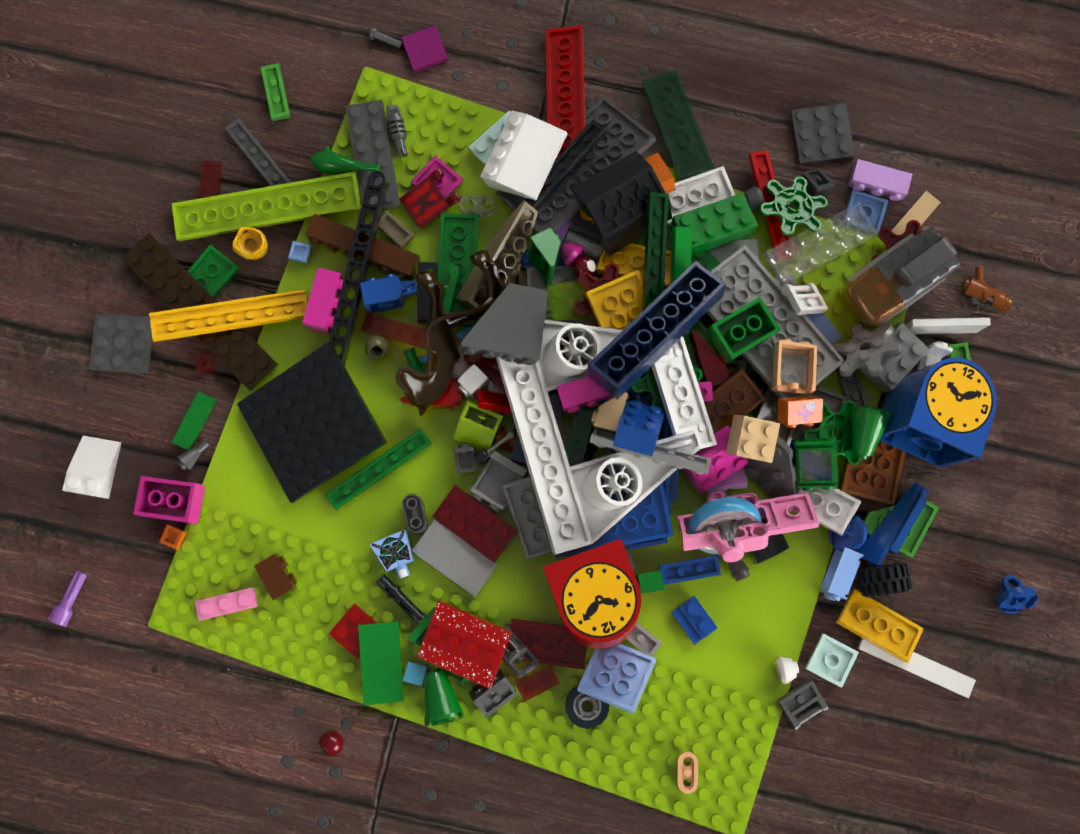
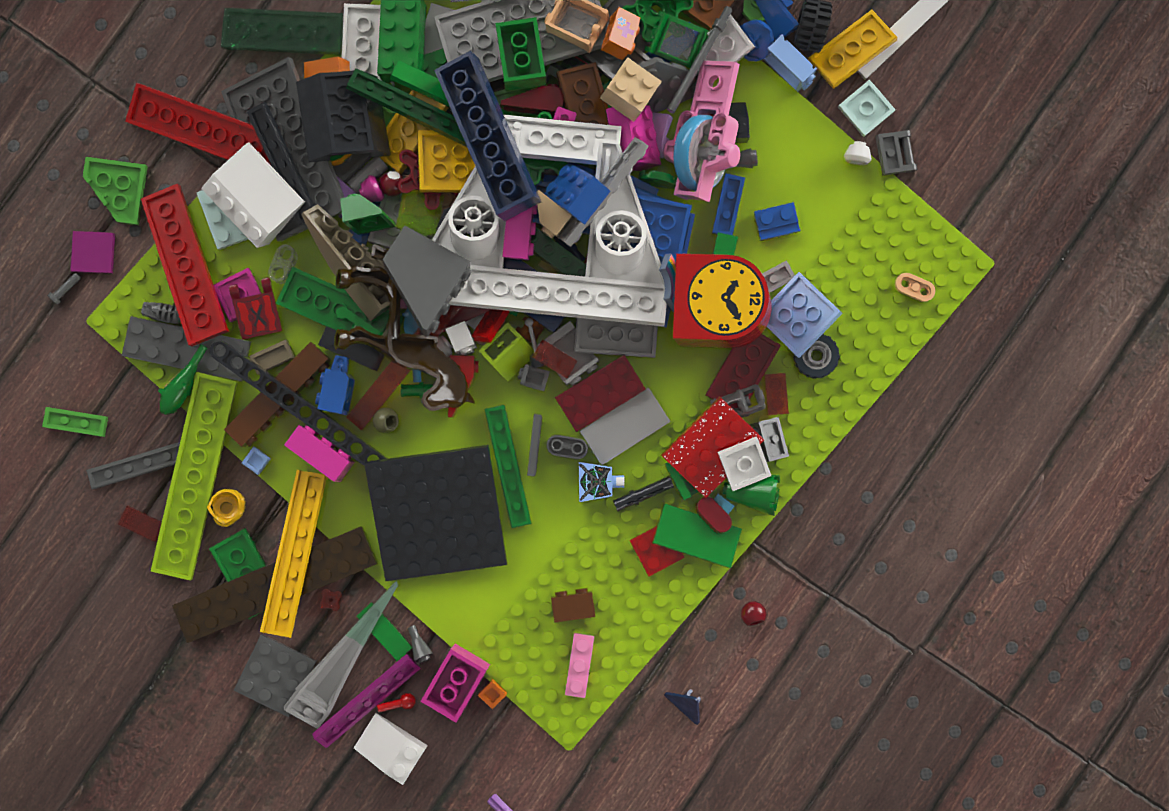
camera: 65 degrees left, 5 degrees up
(123, 386) = (322, 686): none -> light grey plate
(126, 429) = (366, 701): none -> magenta plate
(140, 464) = (406, 701): none -> red bar
(226, 716) = (686, 704): none -> dark blue piece
(405, 484) = (534, 447): none -> dark grey tile
(405, 670) = (713, 515): none -> dark red tile
(442, 125) = (184, 265): none -> red plate
(460, 679) = (744, 463): none -> white plate
(488, 46) = (117, 186): none -> bright green plate
(488, 470) = (554, 359): none -> clear red plate
(602, 538) = (668, 272): none -> sand blue tile
(685, 496) = (658, 179): none -> green tile
(845, 494) = (718, 27): none -> dark grey bar

